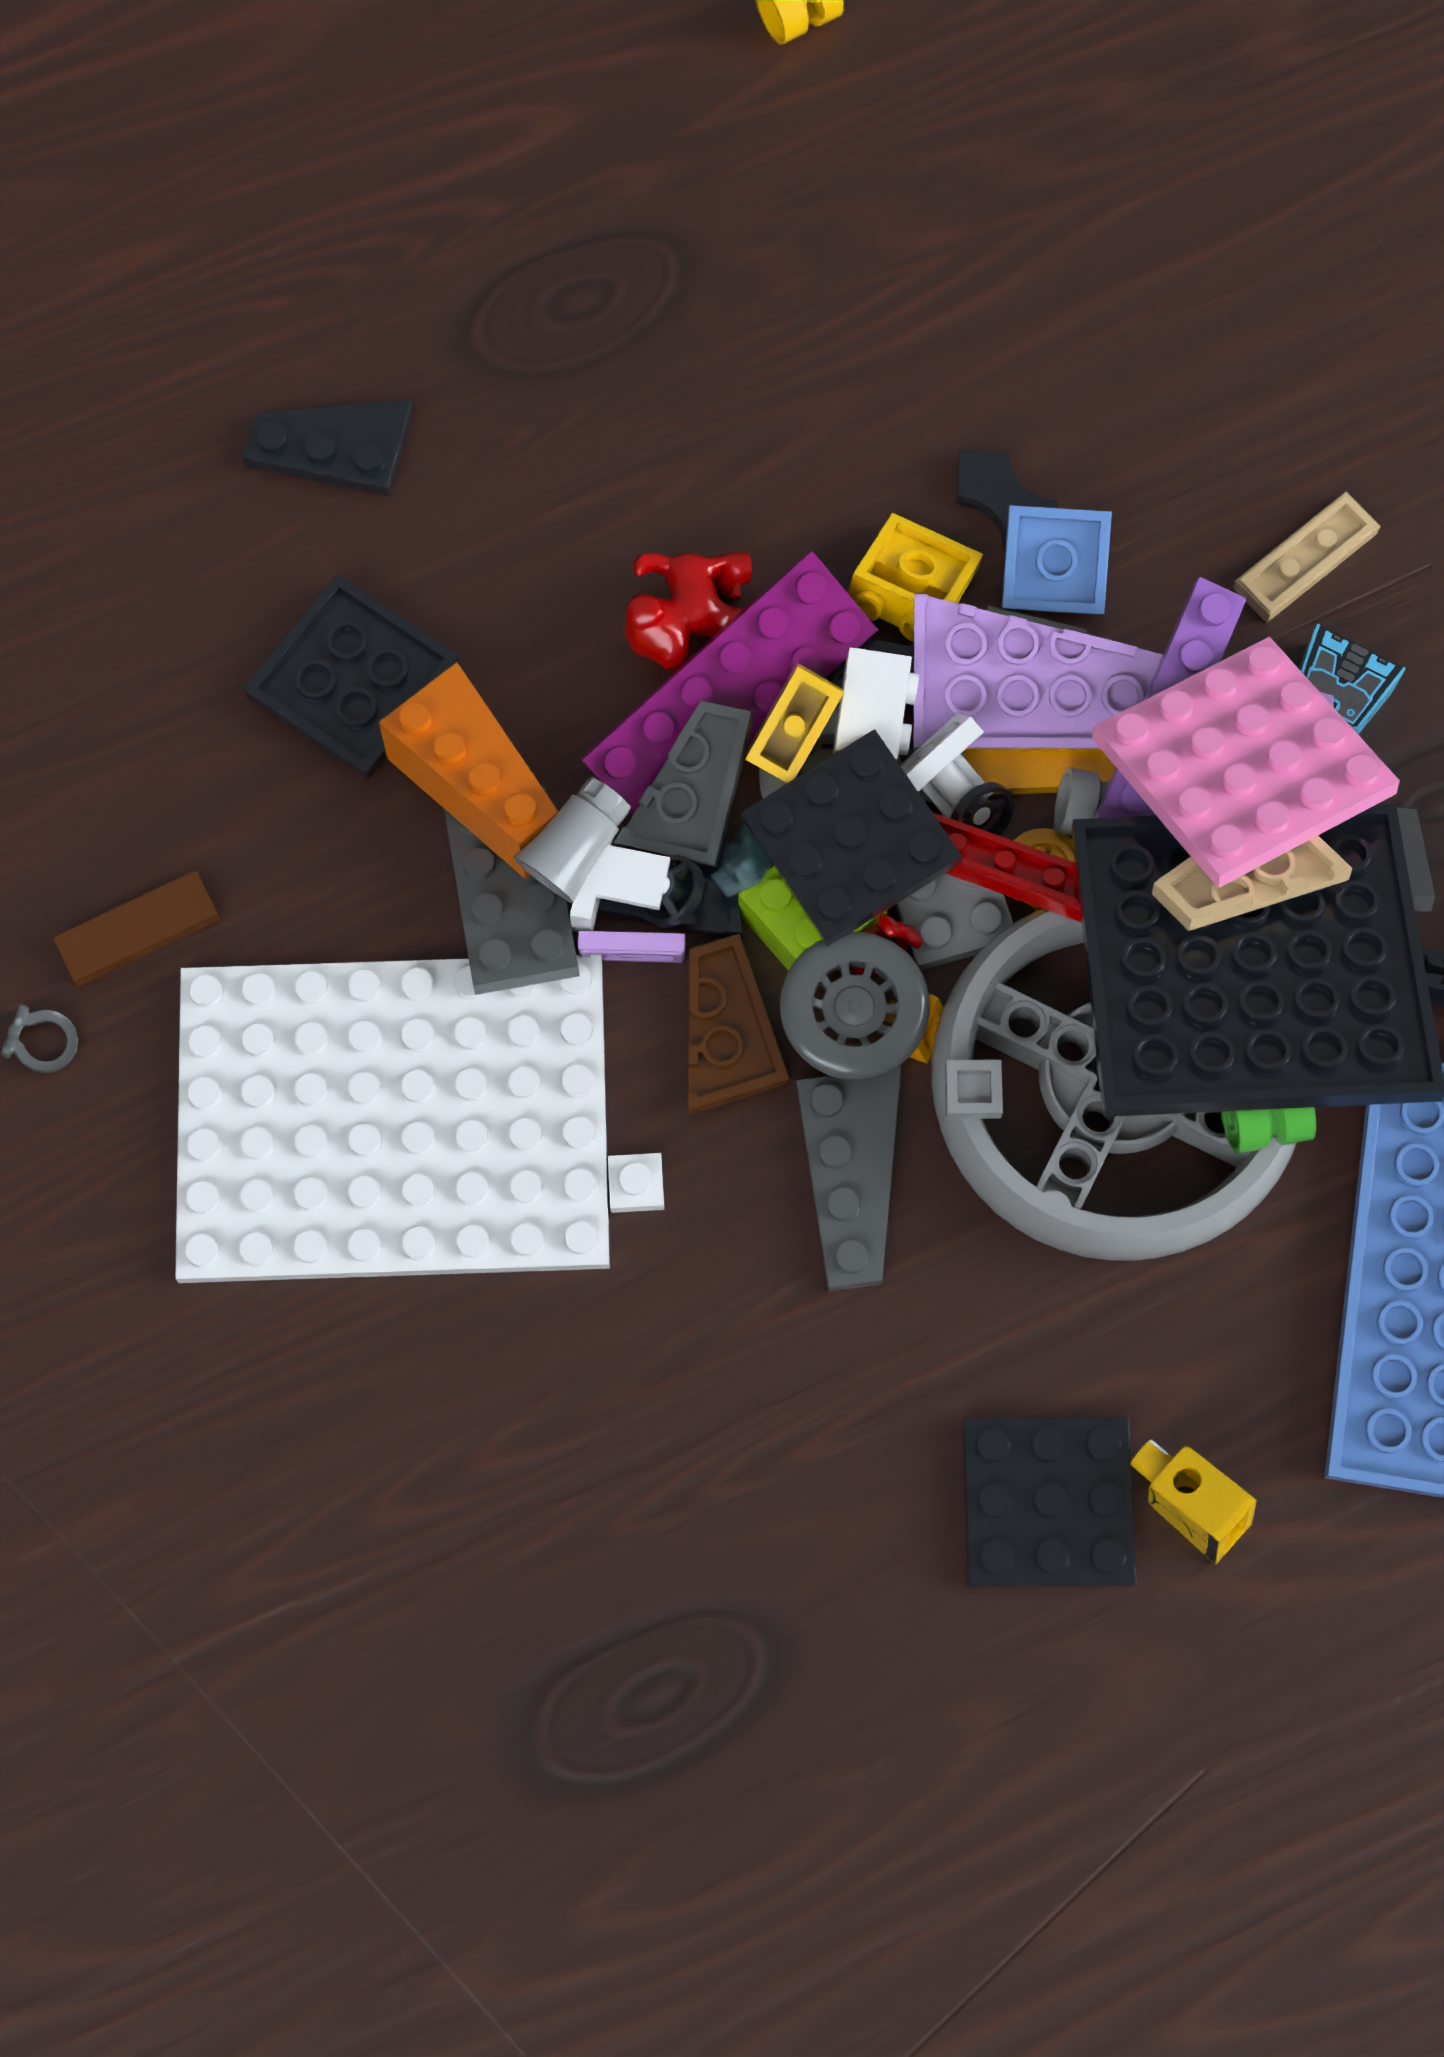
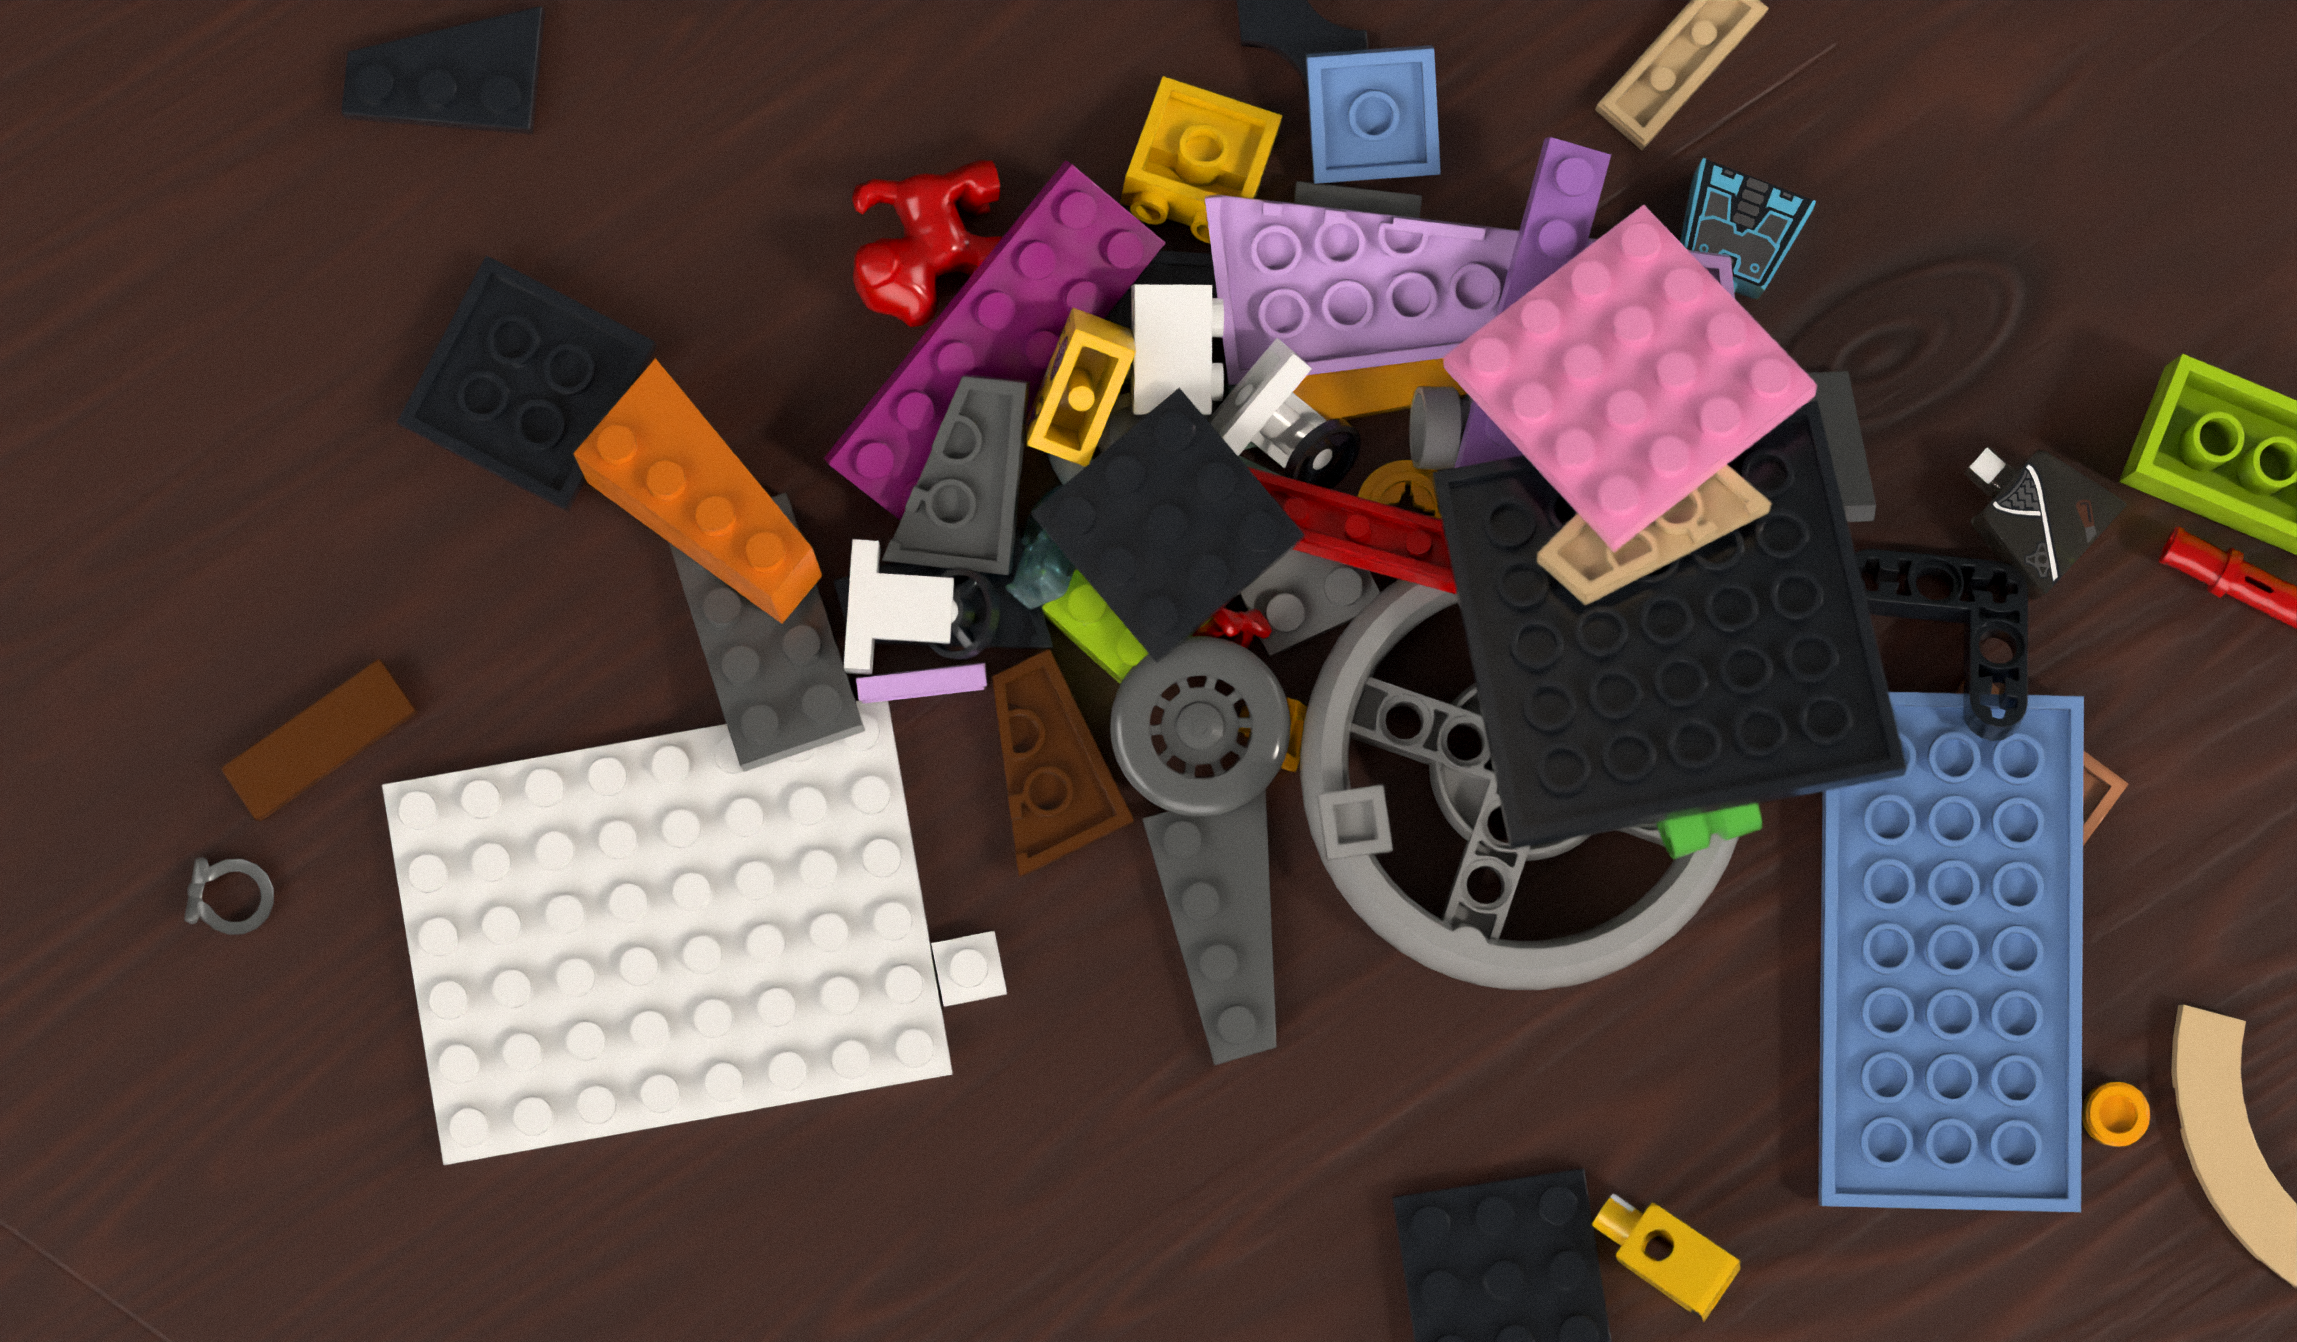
camera: 10 degrees left, 10 degrees up
(574, 839) = (836, 580): light grey plant -> none

